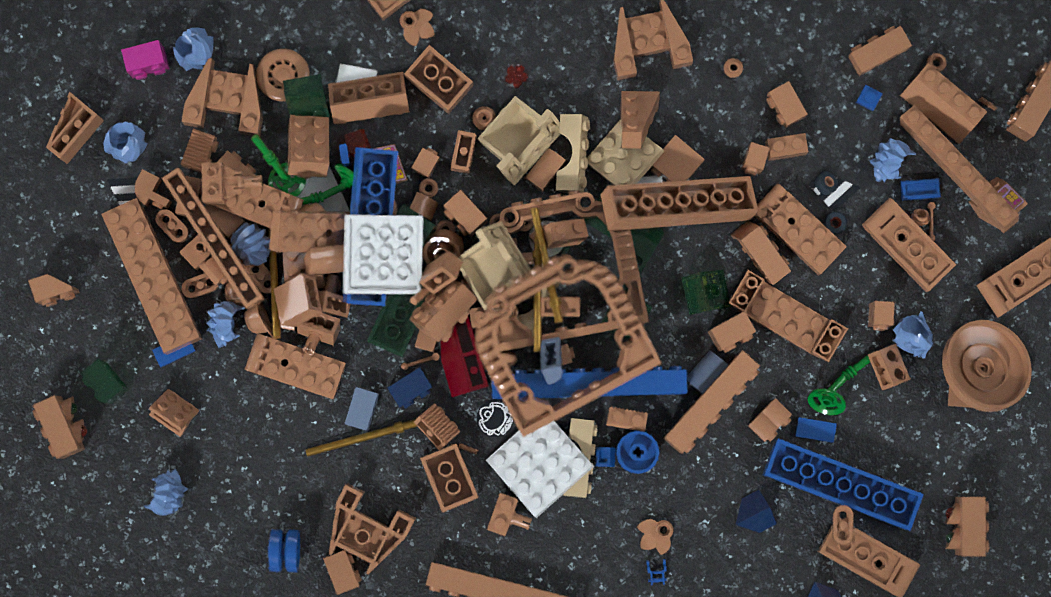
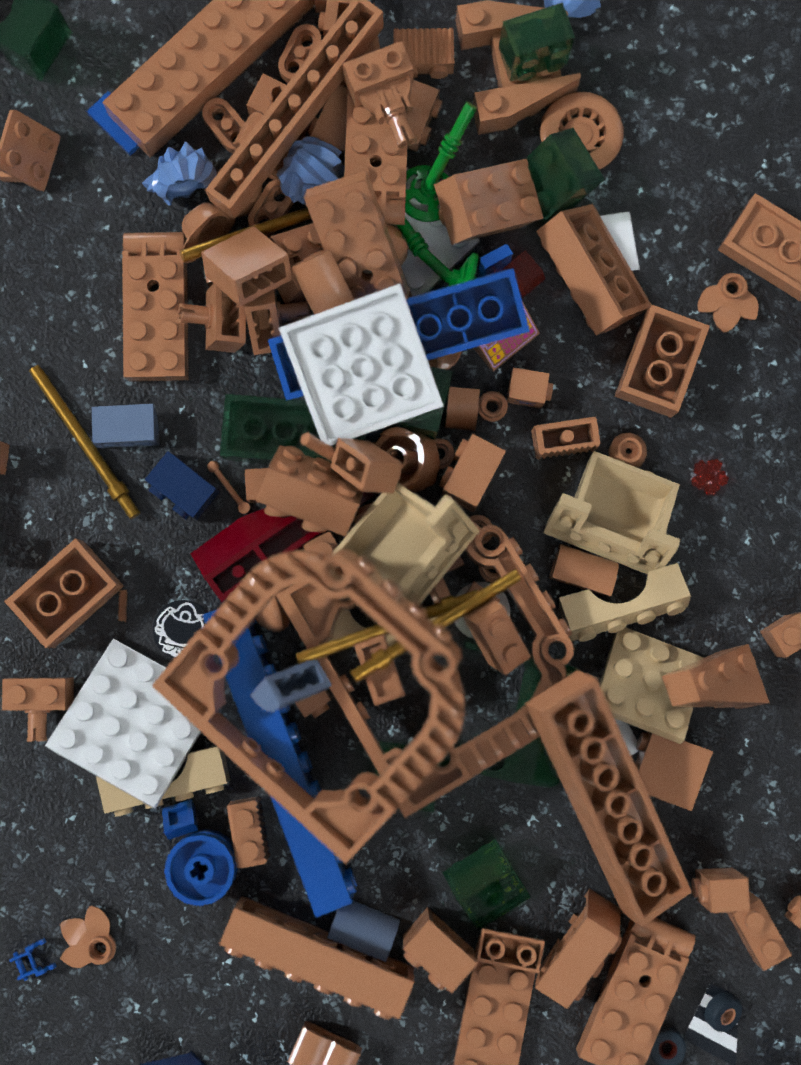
camera: 70 degrees right, 0 degrees up
(225, 84) = (536, 42): none -> clear green brick
(437, 426) = (137, 547): nougat brick -> none

